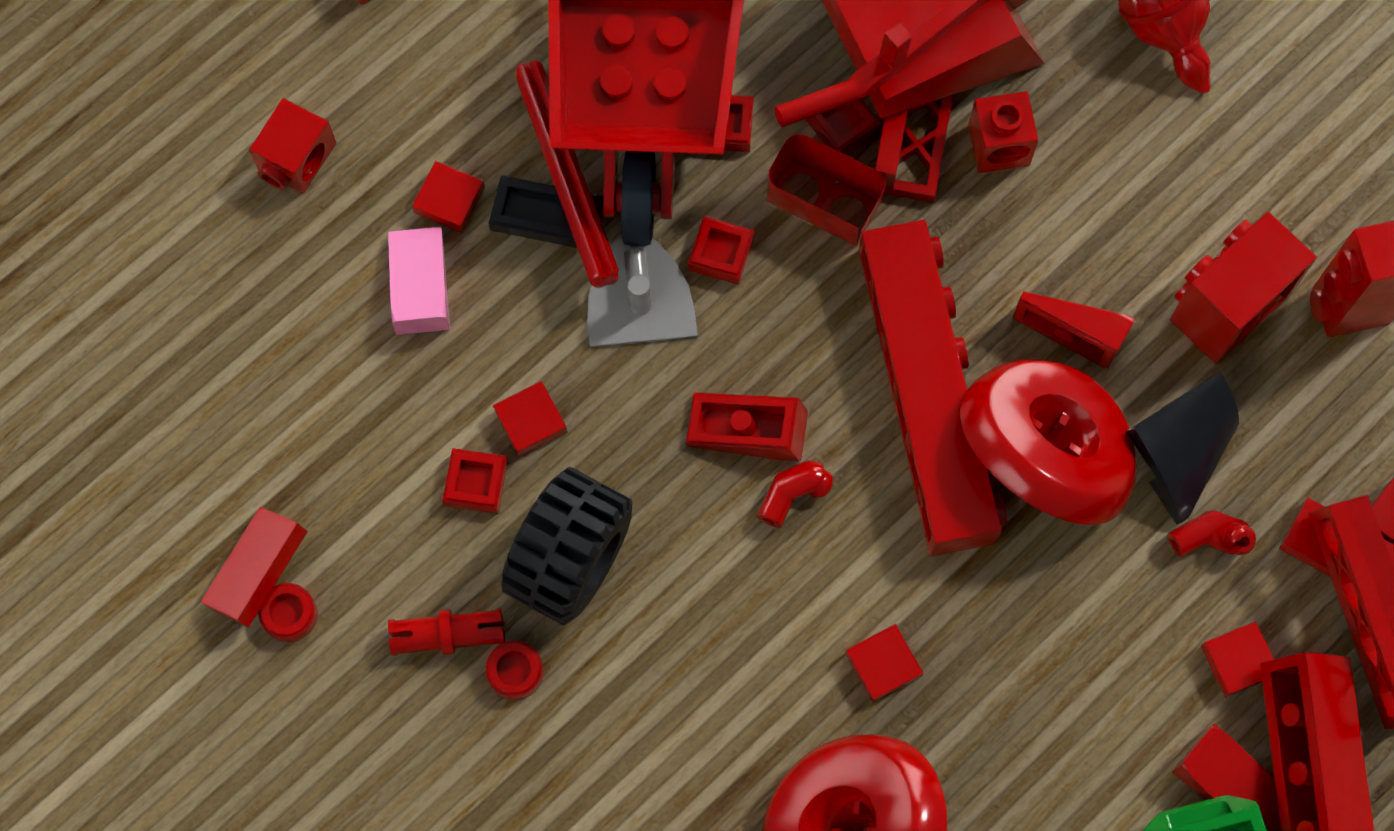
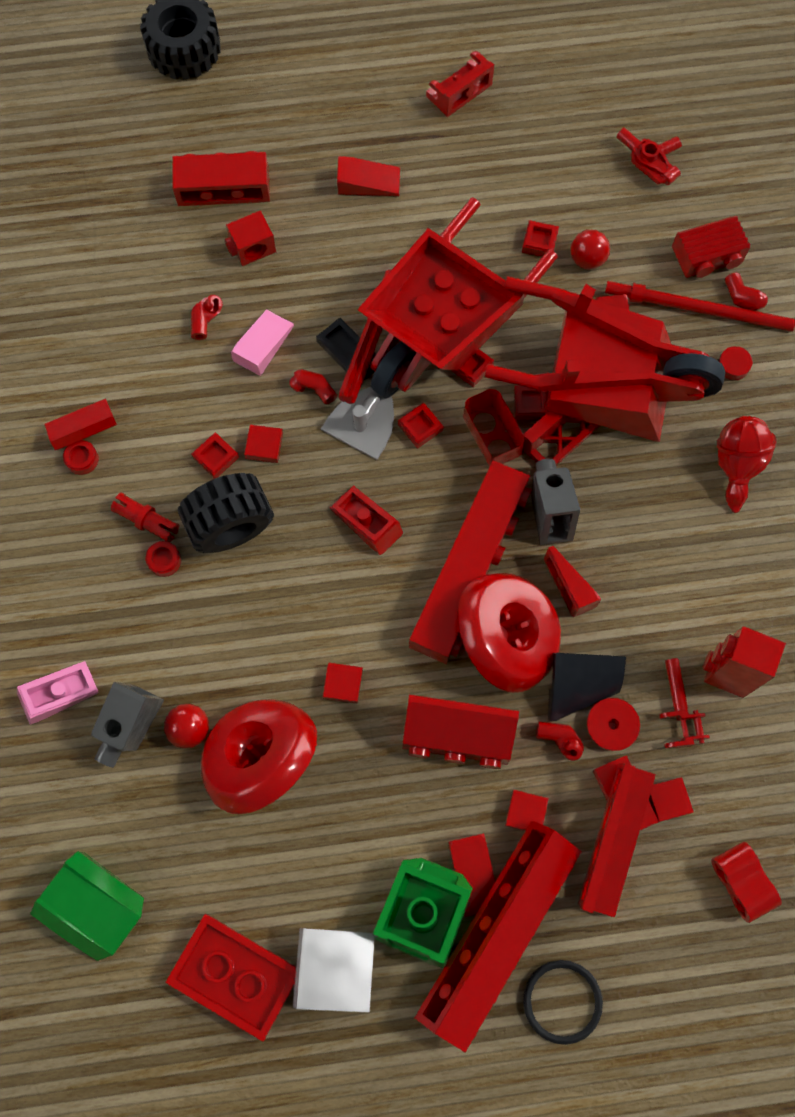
camera: 35 degrees right, 0 degrees up
(183, 88) = (221, 178): none -> red brick
(304, 297) = (202, 314): none -> red arm
(448, 196) = (307, 311): red tile -> none
(533, 286) = (315, 381): none -> red arm
(791, 484) = (364, 562): red arm -> none
(981, 234) = (554, 503): none -> dark grey torso
(1003, 132) = (607, 460): red brick -> none
(1087, 616) = (459, 731): none -> red slope
(1240, 286) = (671, 620): red brick -> none
(1262, 470) = (613, 724): none -> red piece
(1327, 389) = (680, 708): none -> red piece

